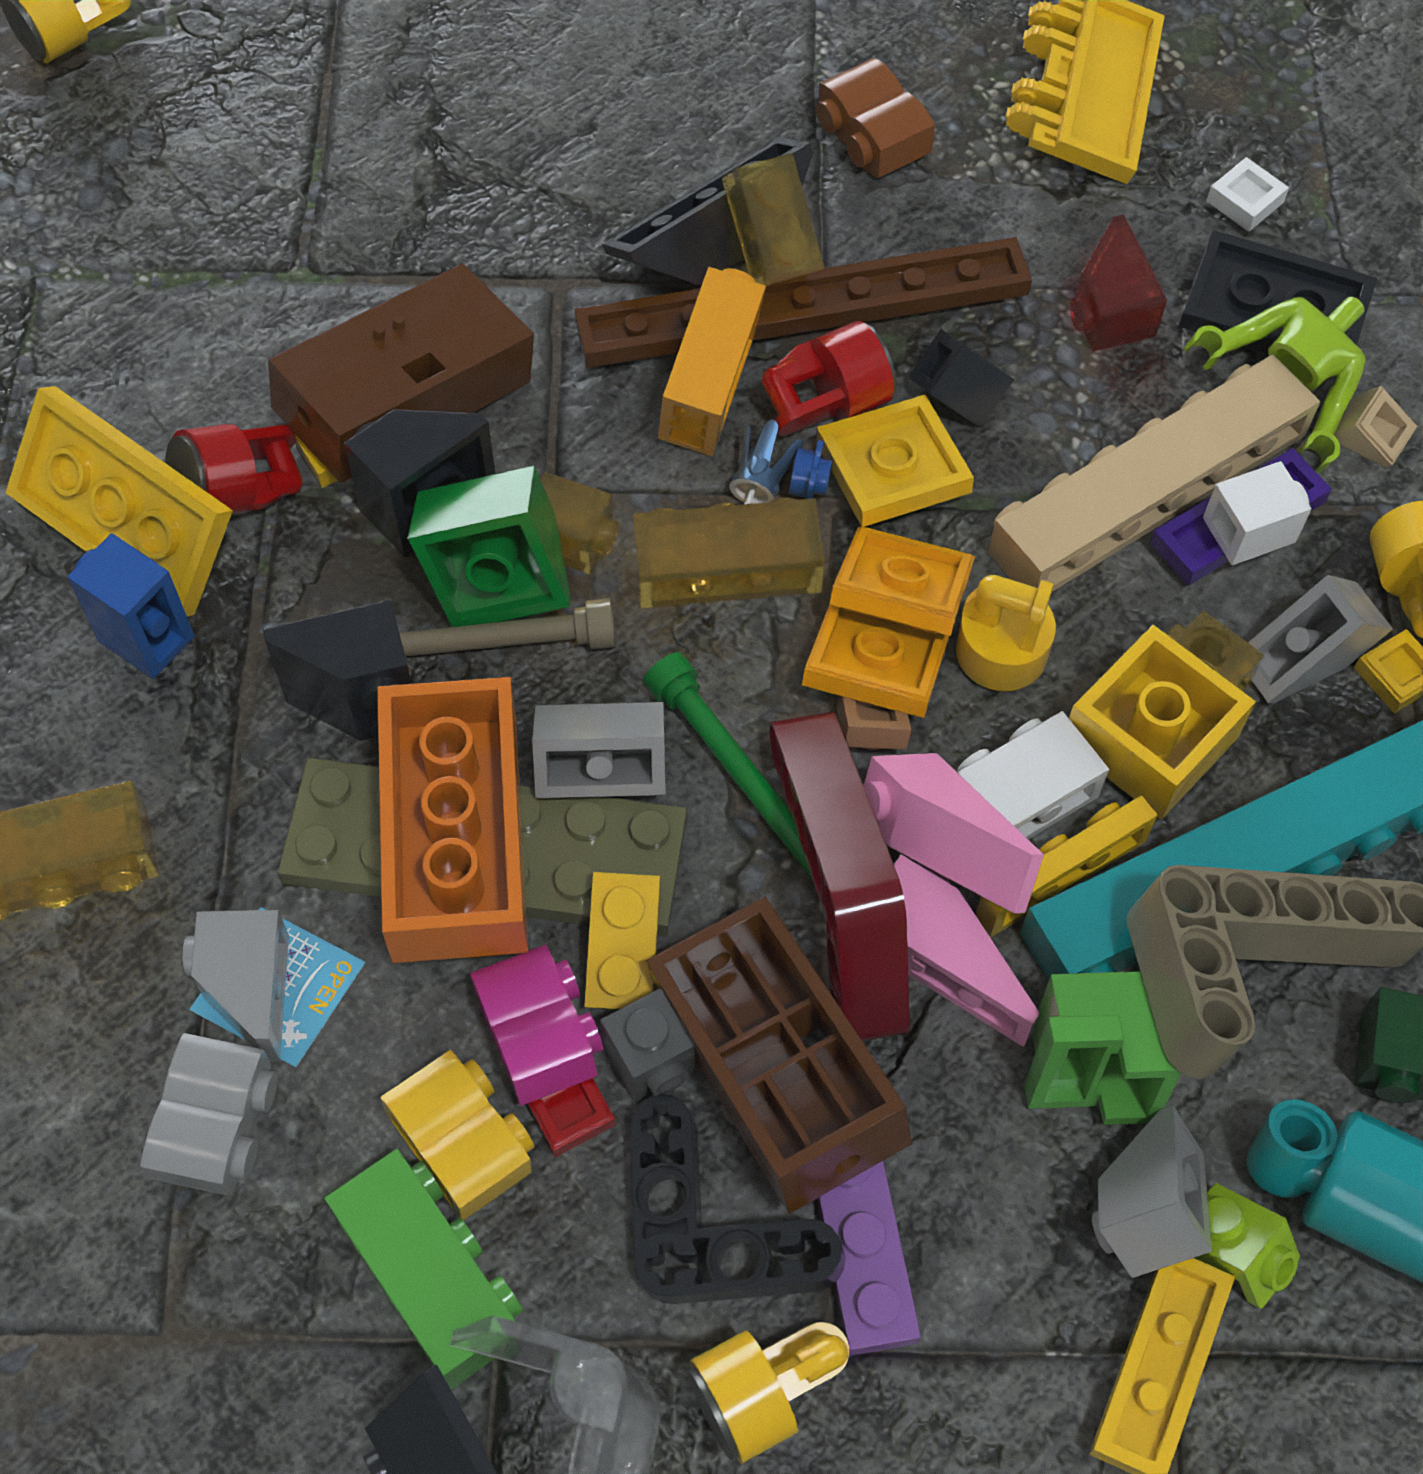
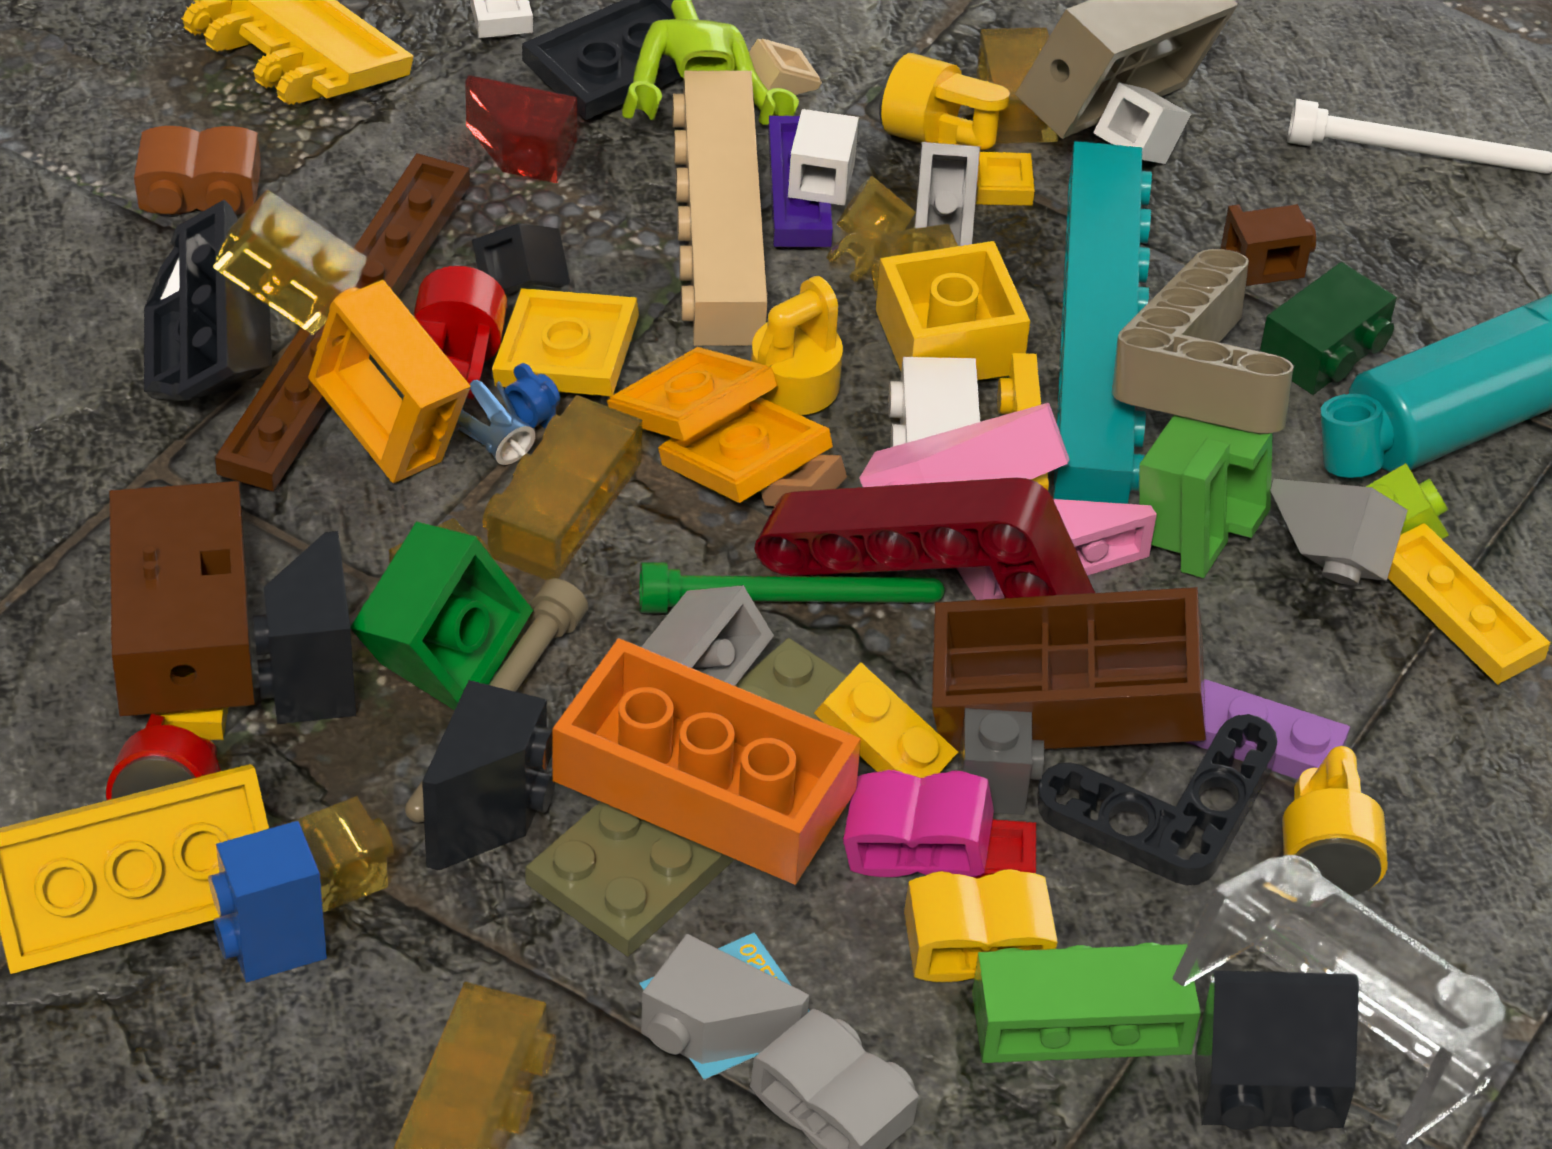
camera: 60 degrees left, 15 degrees down
(227, 622) = (347, 851): none -> clear yellow brick
(1235, 597) = (866, 217): none -> clear yellow plate

